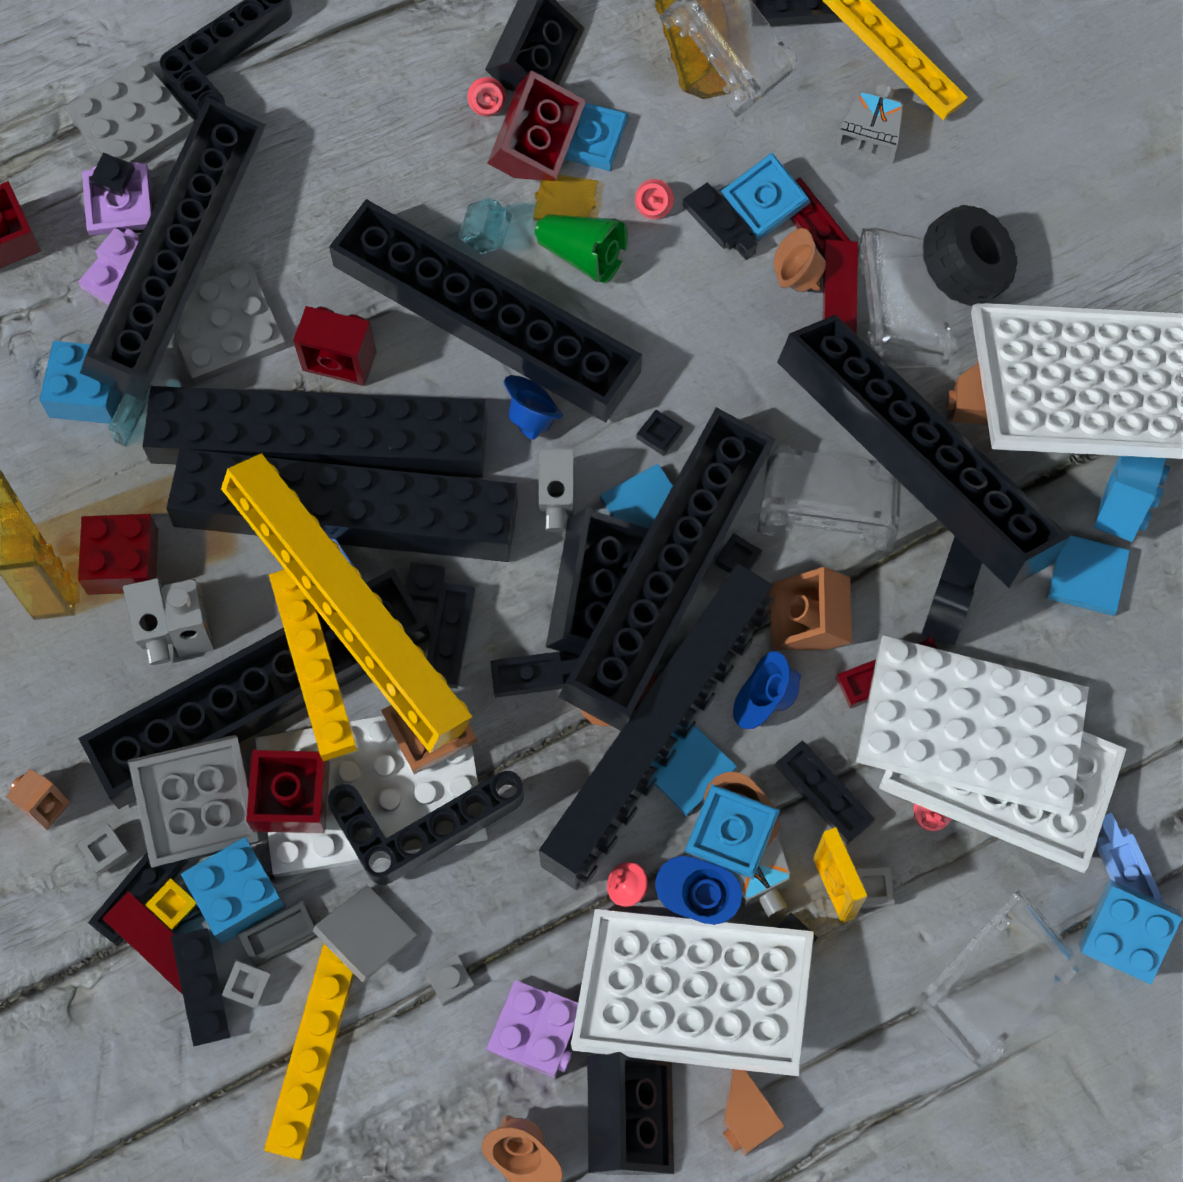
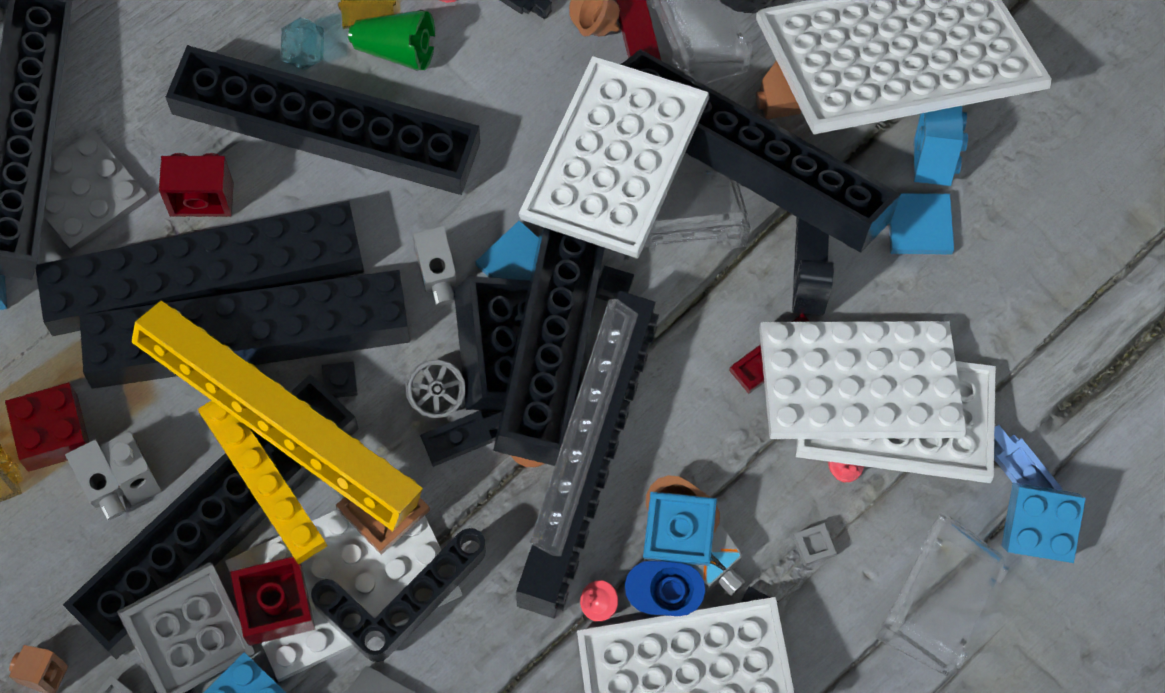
camera: 20 degrees left, 0 degrees up
(127, 418) = (19, 300): clear light blue tile -> none
(451, 631) = (376, 415): black plate -> none
(519, 617) = (435, 388): none -> light grey wheel
(530, 406) = (390, 198): blue piece -> none
(657, 698) = (584, 428): none -> clear tile
(659, 432) = (511, 192): black tile -> none
(691, 771) = (627, 486): dark azure tile -> none
(768, 689) = (674, 395): blue piece -> none
(772, 420) = (614, 156): none -> white plate
(811, 611) = (692, 317): nougat slope -> none
(824, 792) = (748, 473): black plate -> none
(839, 876) = (784, 542): yellow tile -> none

